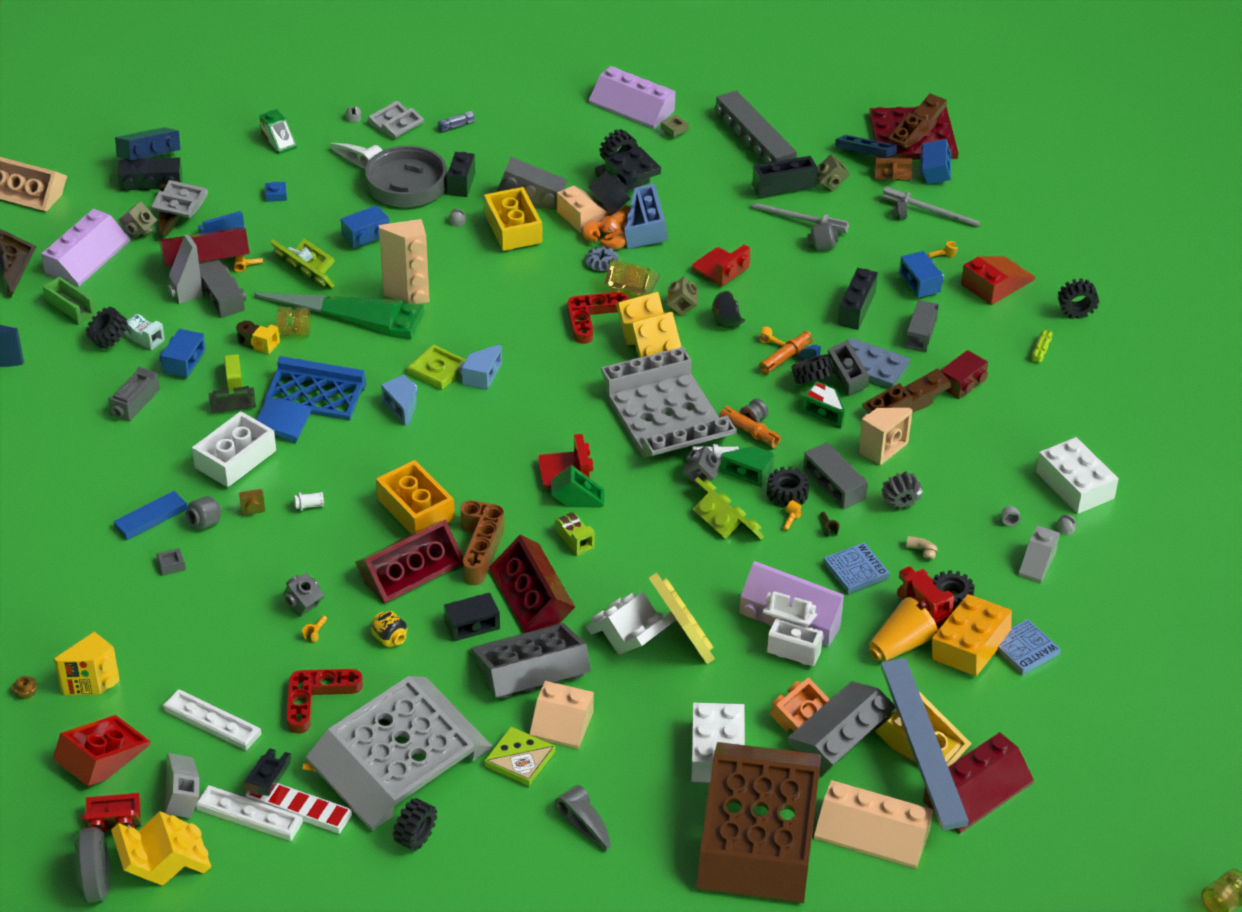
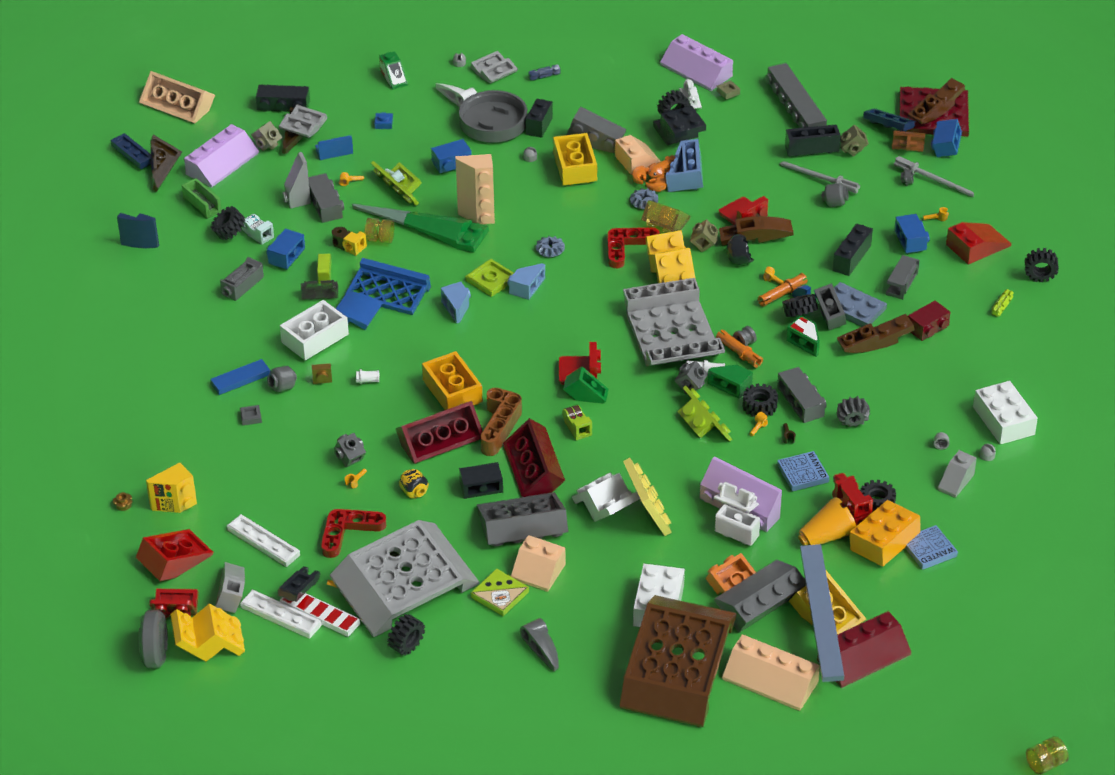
camera: 10 degrees right, 0 degrees up
(147, 143) = (283, 72): dark blue brick -> none
(209, 245) = (320, 161): dark red piece -> none
(494, 327) = (544, 249): none -> sand blue gear
(610, 192) = (660, 143): black brick -> none
(629, 127) = (691, 93): none -> white hinge
(744, 281) = (760, 227): none -> reddish brown slope
(884, 433) = (849, 363): light nougat slope -> none
(922, 544) = (860, 456): tan arm -> none

